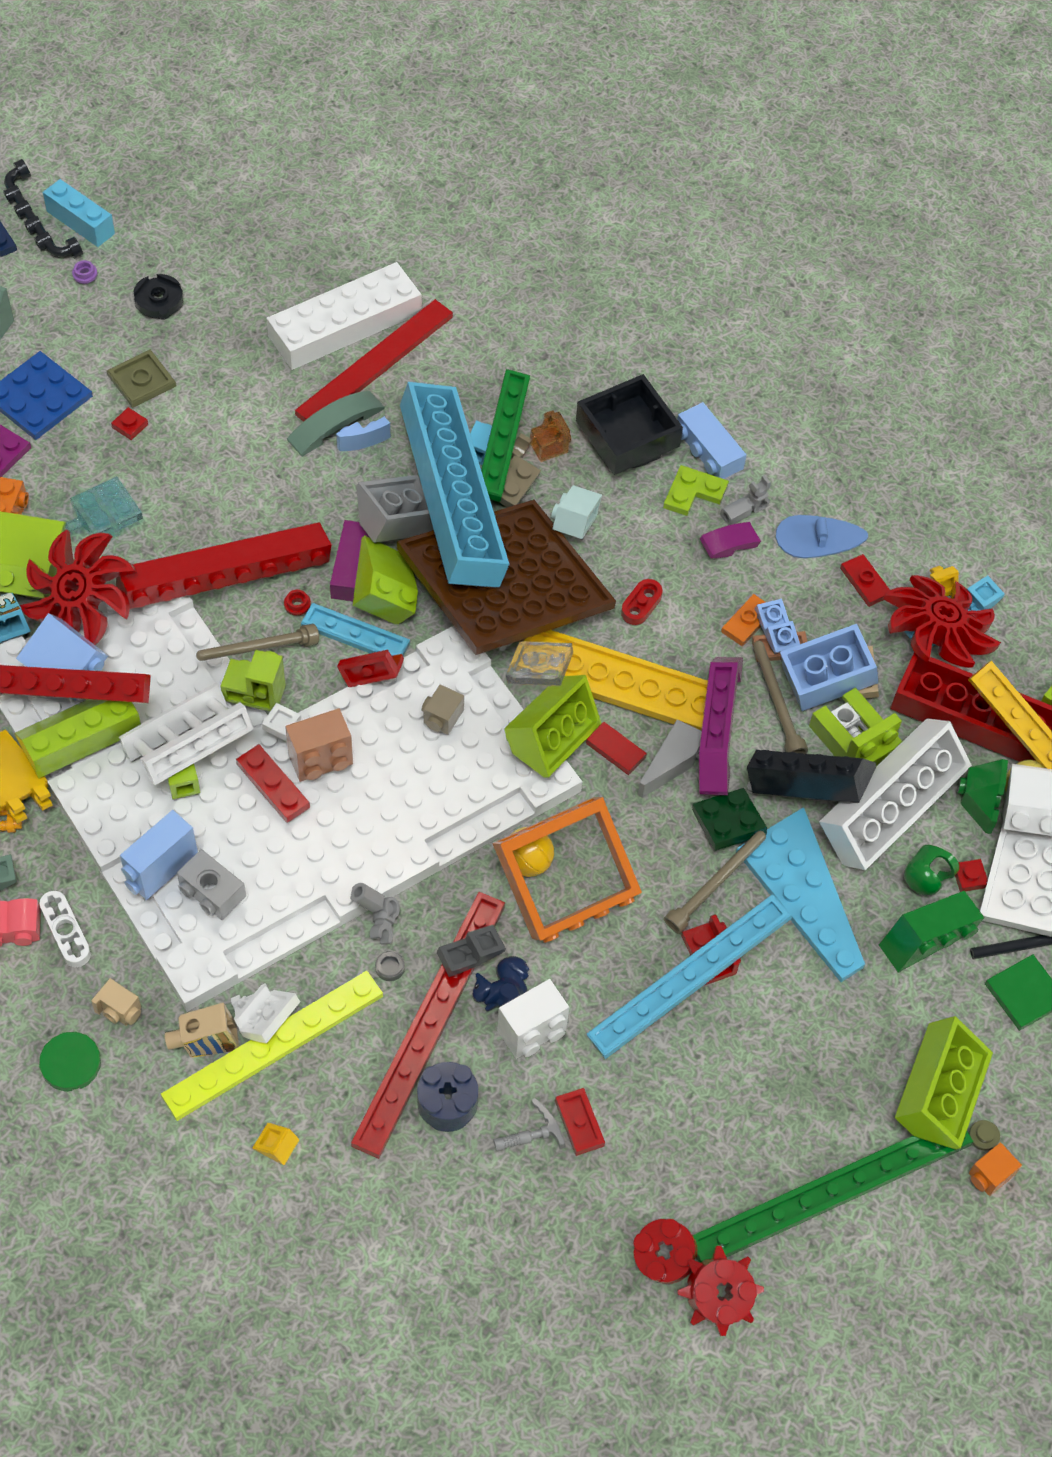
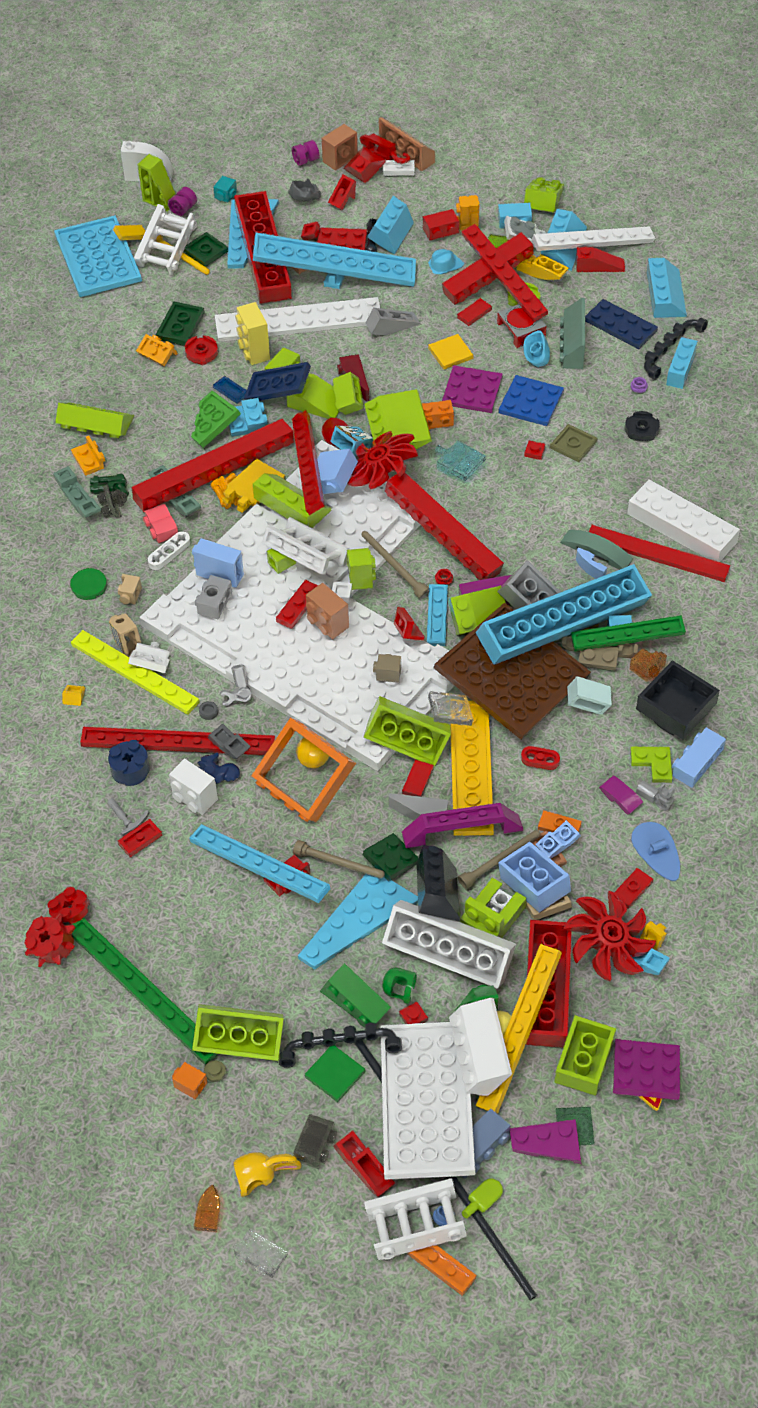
camera: 75 degrees right, 5 degrees down
(981, 978) = (392, 1044): none -> black bar

